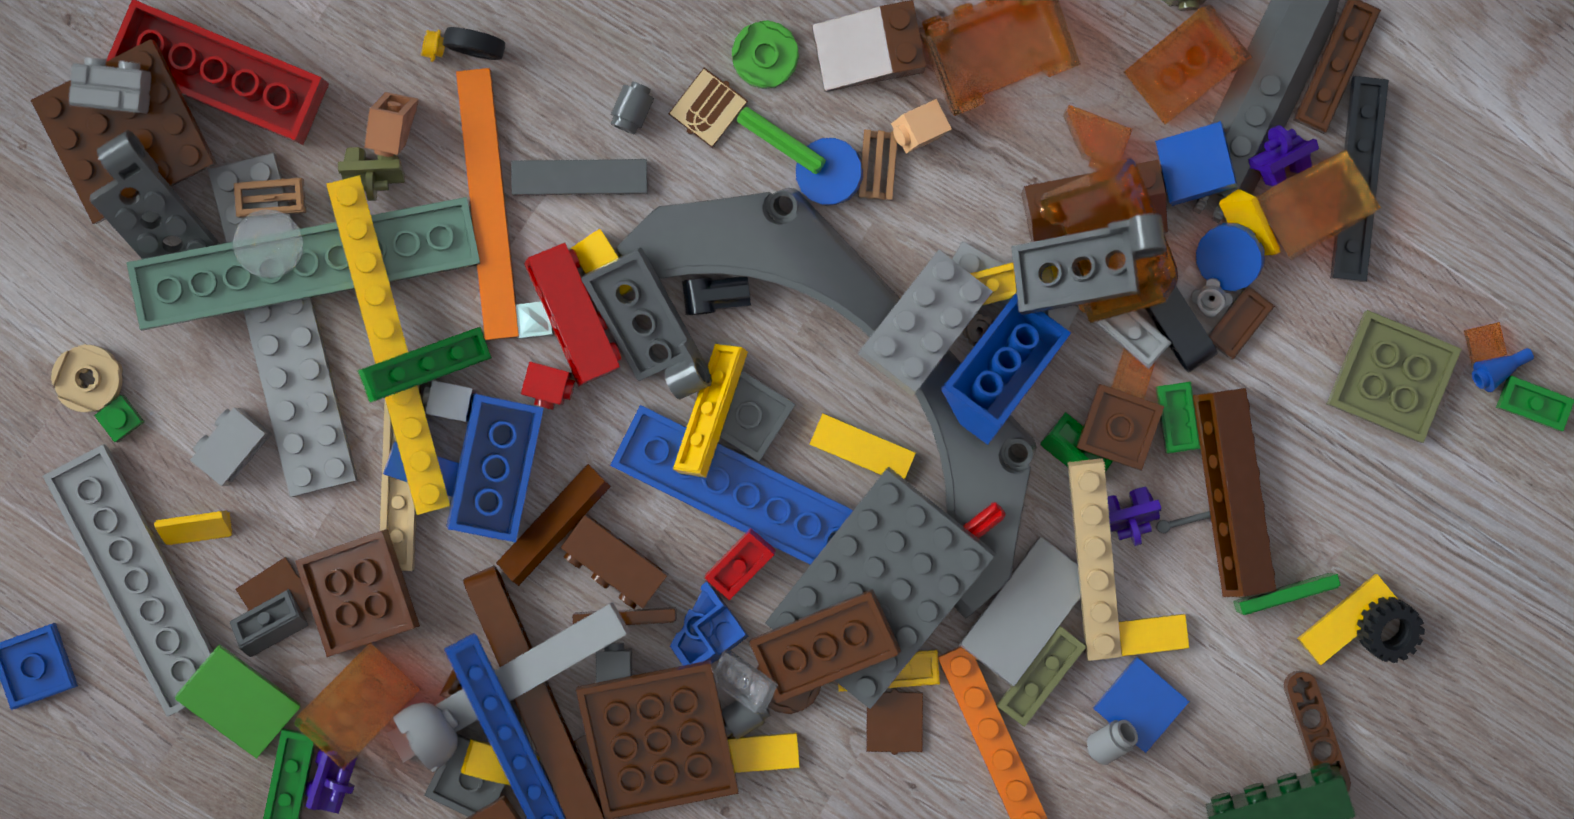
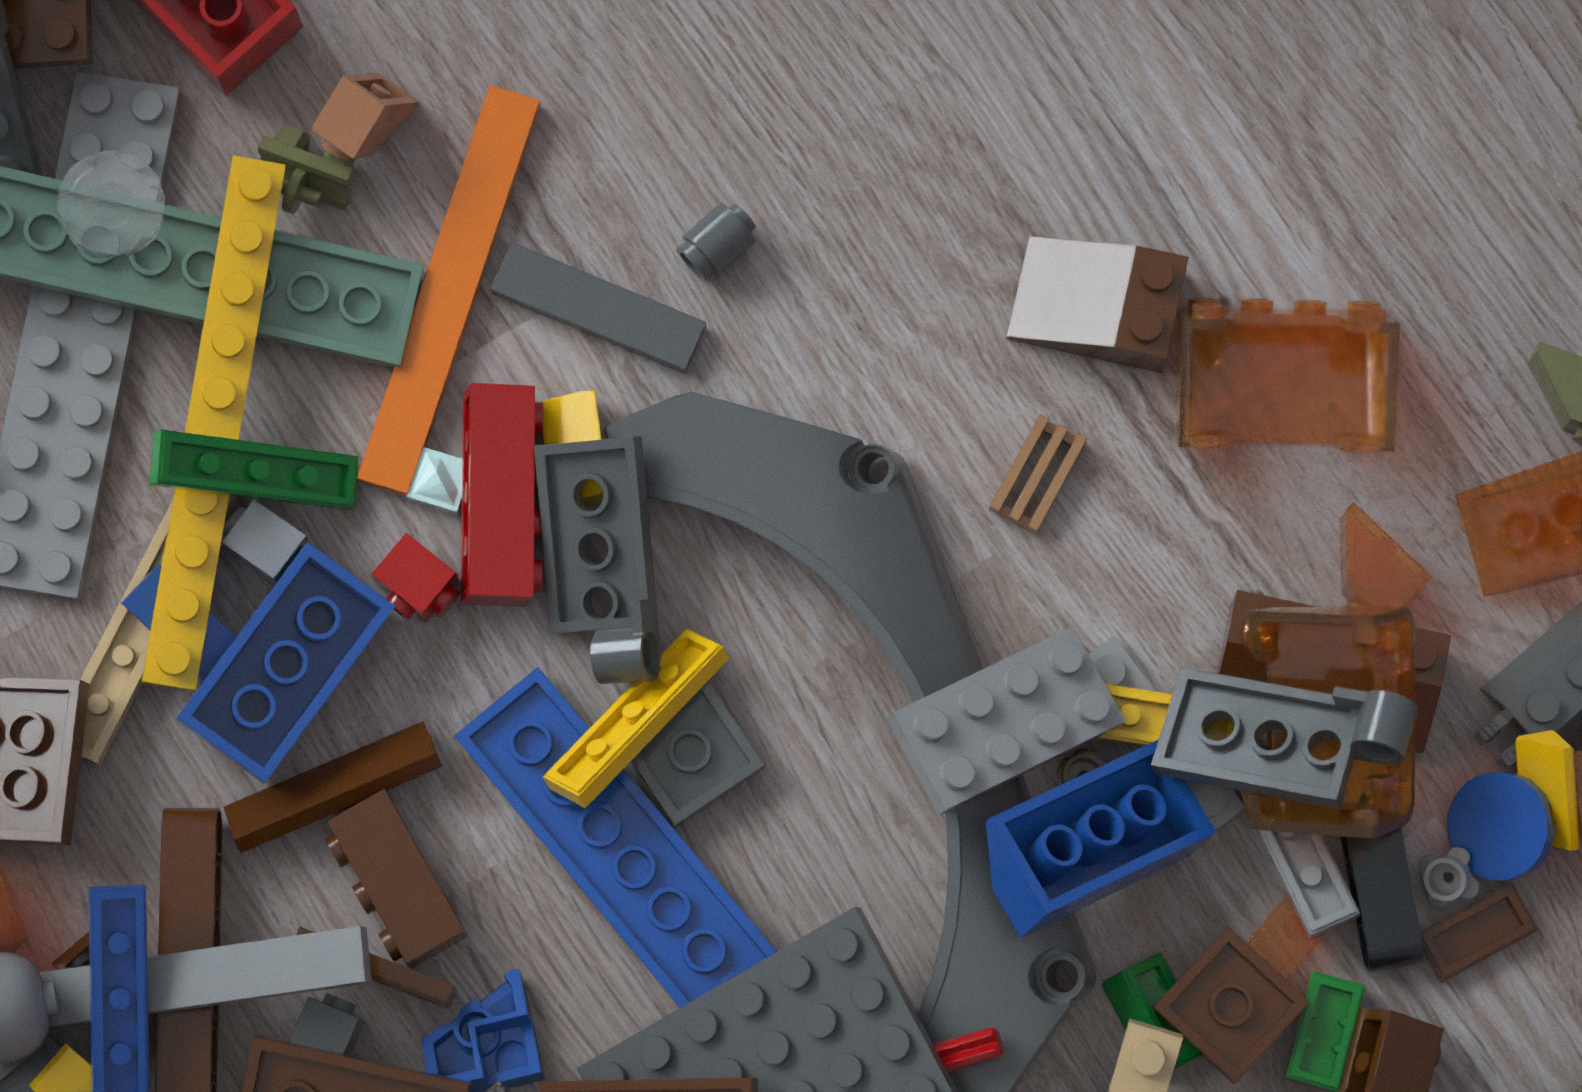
camera: 20 degrees right, 10 degrees down
(299, 196) = (185, 160): medium nougat tile -> none
(432, 45) = (475, 35): yellow plate -> none
(474, 43) = (533, 54): black tyre -> none
(708, 107) = (827, 289): piece -> none
(709, 295) = (705, 553): black piece -> none
(740, 564) = (579, 963): red plate -> none
(765, 54) = (942, 249): bright green tile -> none
(781, 140) = (912, 377): bright green axle -> none
(839, 176) = (962, 452): blue tile -> none
(860, 447) = (832, 869): yellow tile -> none
(920, 126) = (1123, 443): light nougat brick -> none
(1196, 163) = (1506, 668): blue tile -> none

